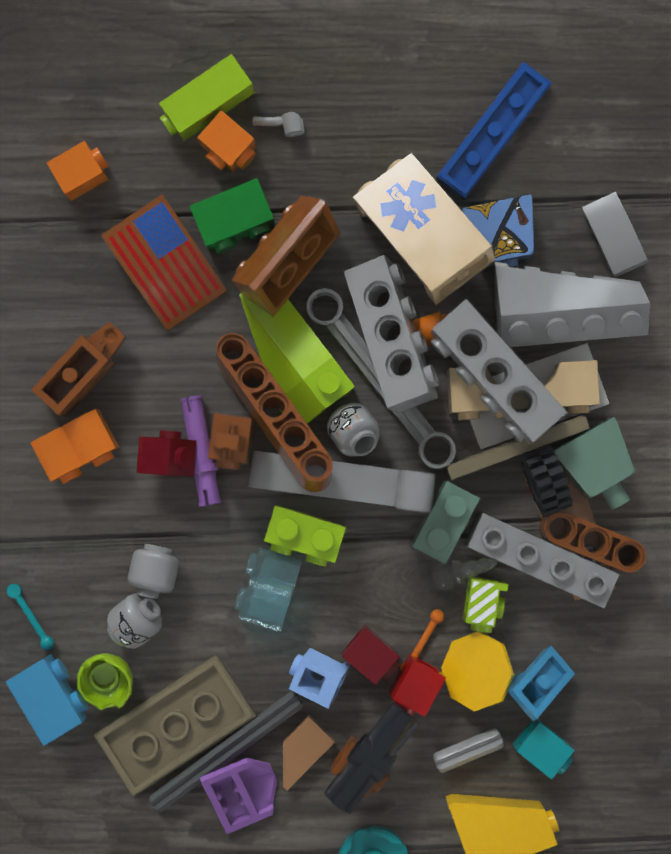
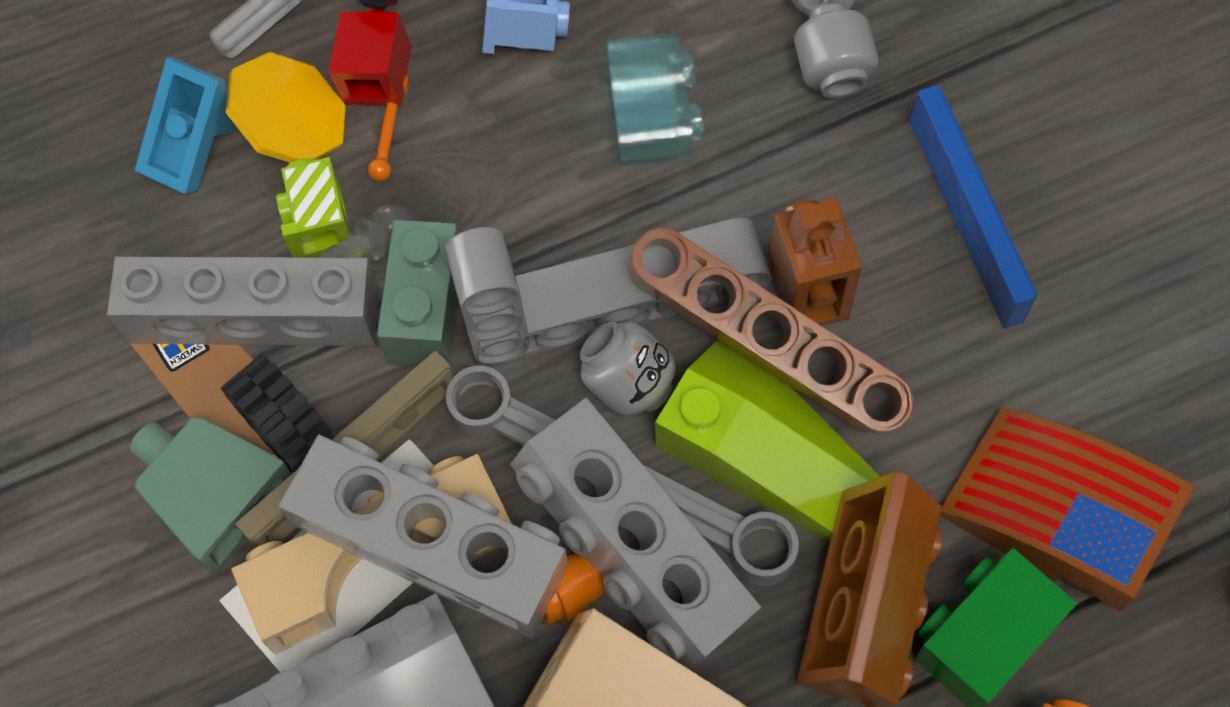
camera: 160 degrees right, 20 degrees down
(75, 446) = (1047, 172): orange brick -> none
(79, 369) = (1106, 274): dark orange hinge -> none
(125, 445) = (972, 207): none -> blue tile
(166, 455) = (901, 208): dark red brick -> none
(205, 468) = (878, 276): medium lavender pin -> none
(304, 534) = (633, 189): lime brick -> none
(371, 655) = (457, 71): dark red brick -> none
(544, 748) = (137, 45): teal brick -> none
(609, 541) = (146, 350): dark orange beam -> none

